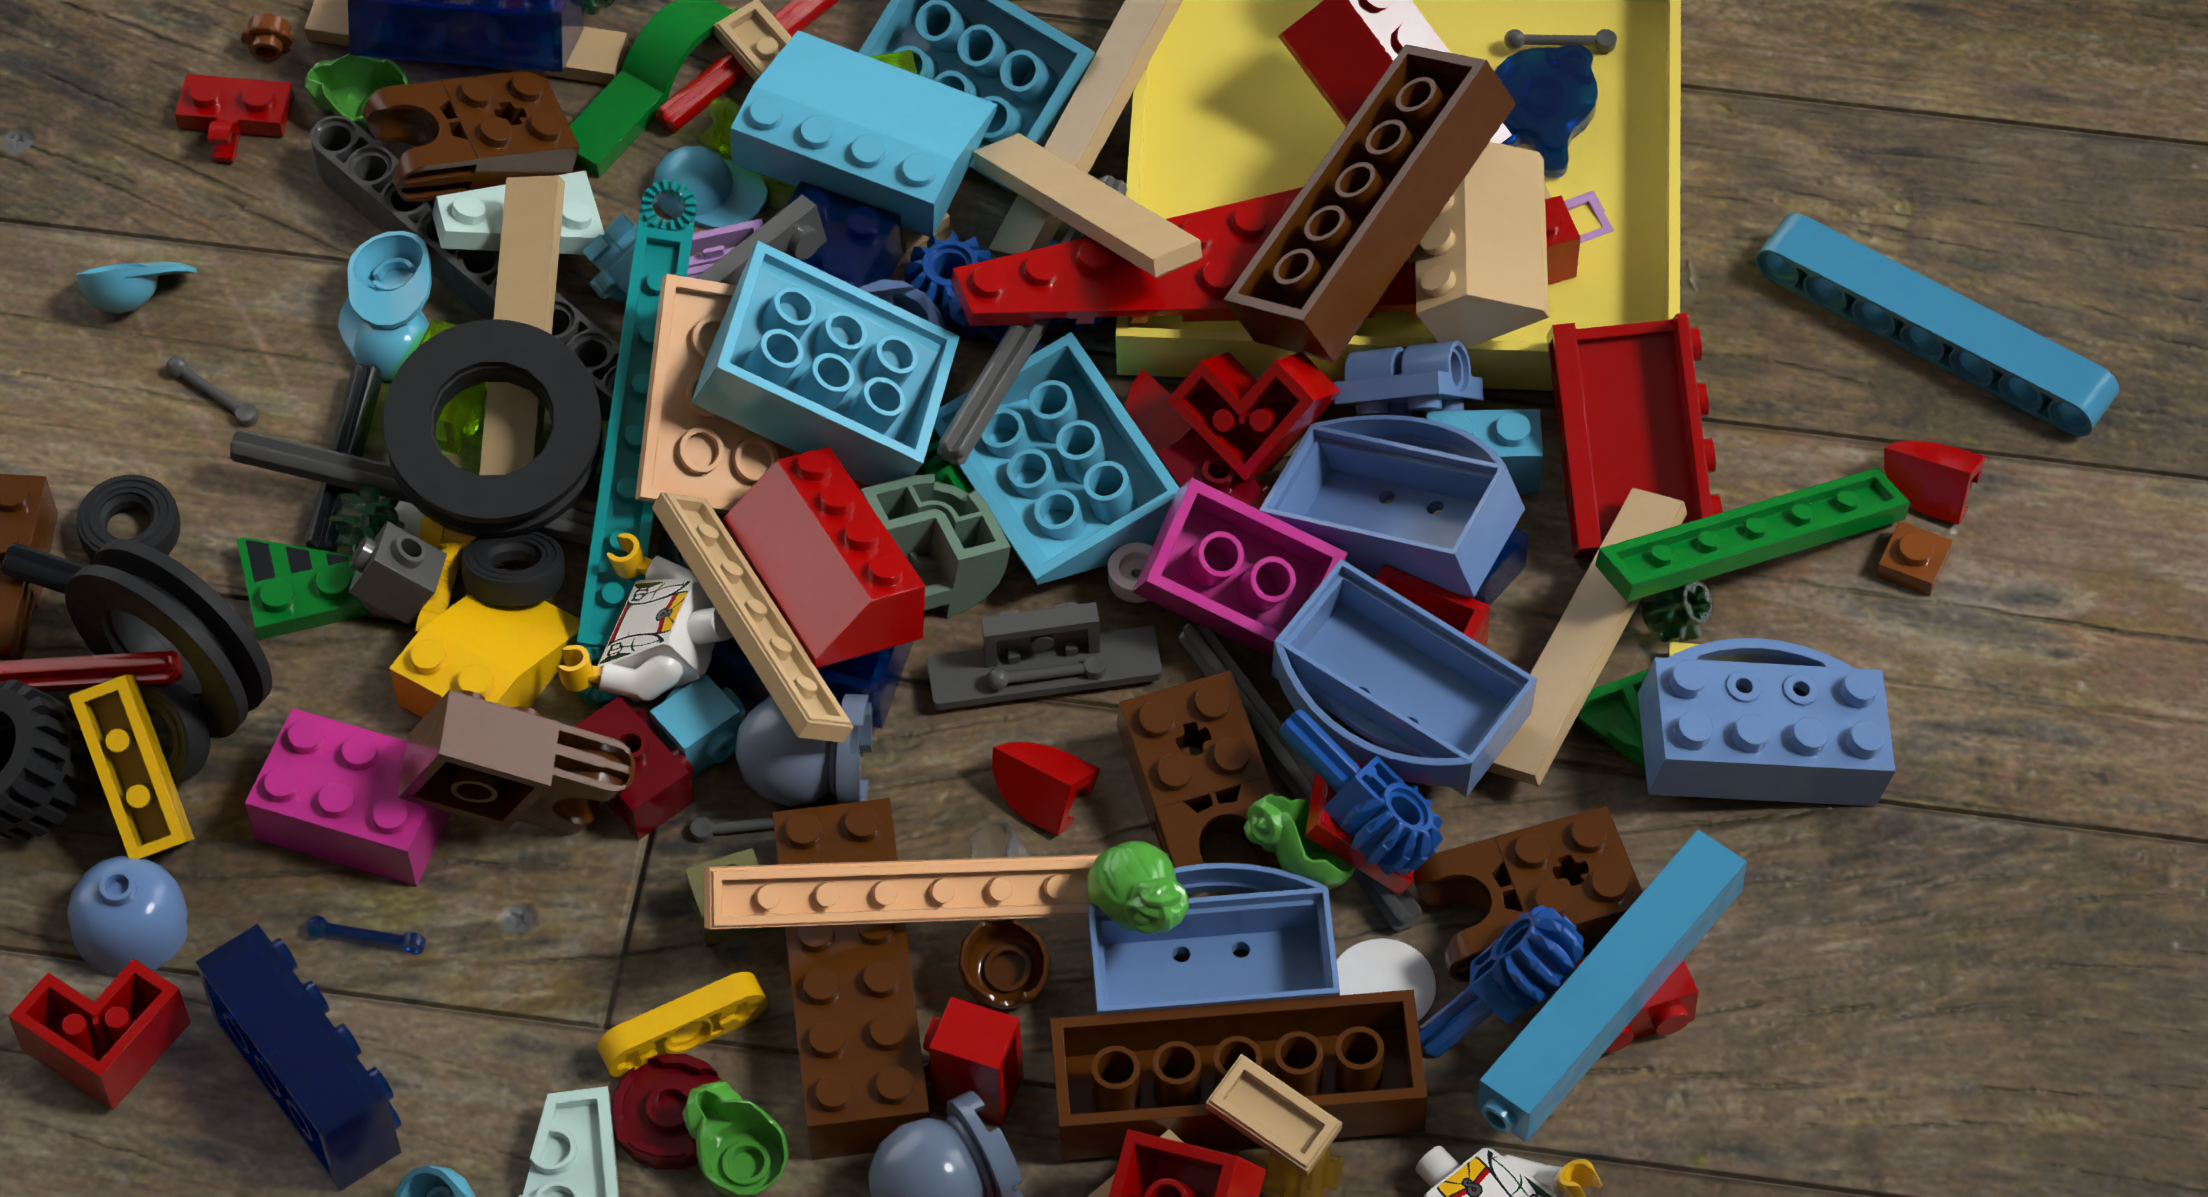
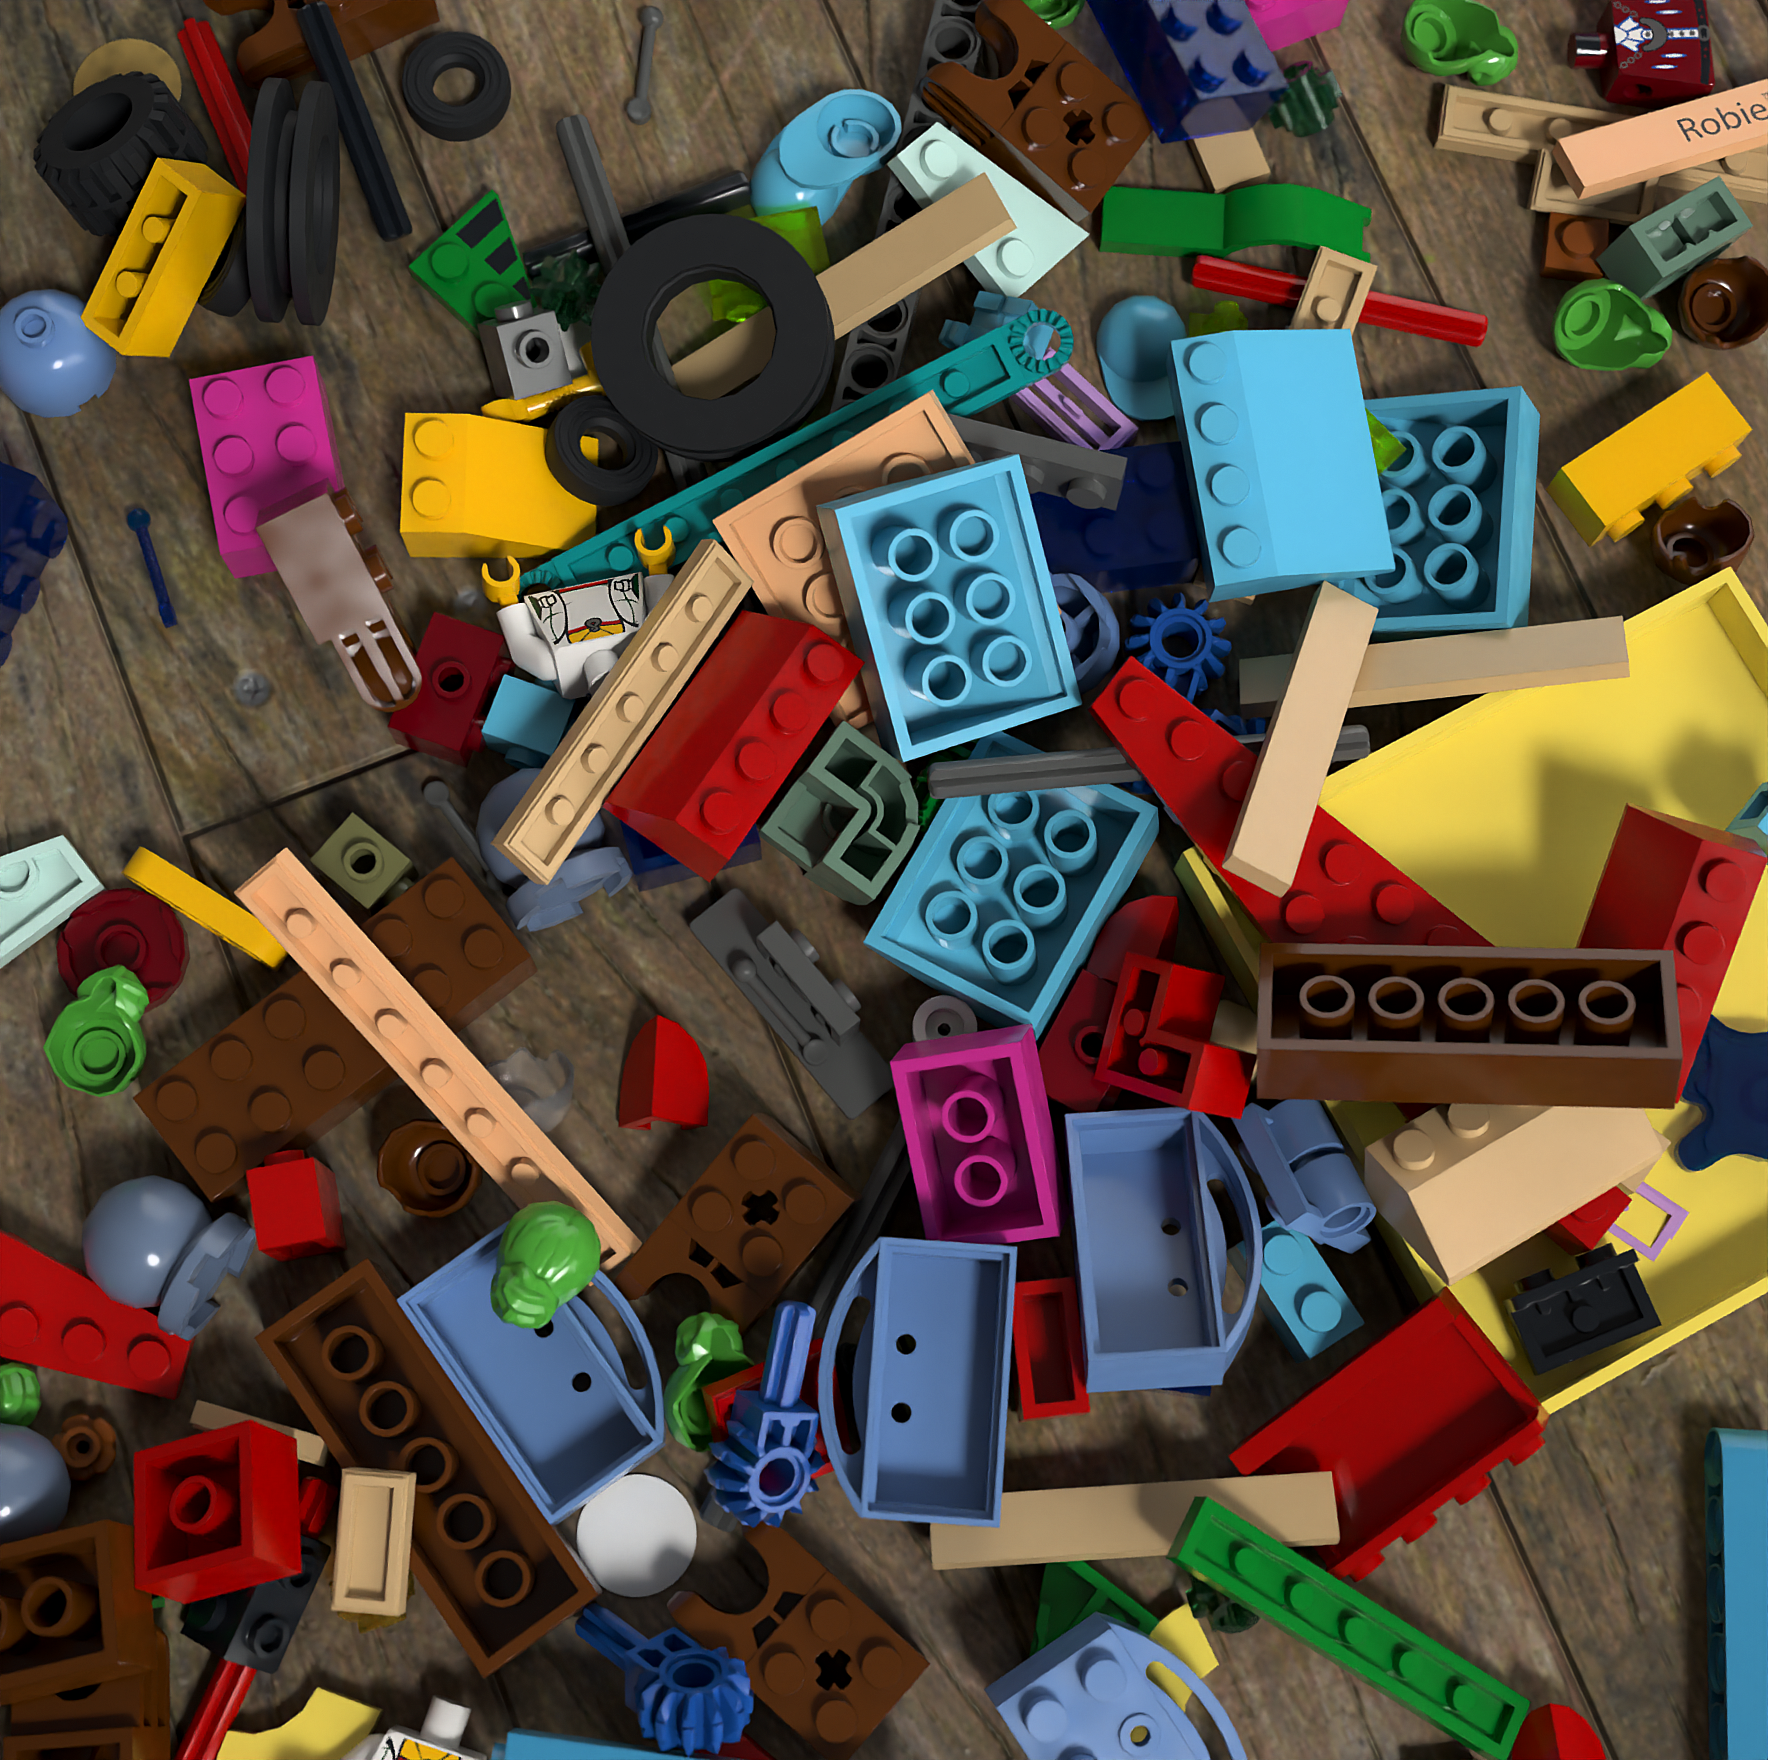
camera: 50 degrees right, 20 degrees up
(1618, 275) = (1581, 1310): none -> black bracket

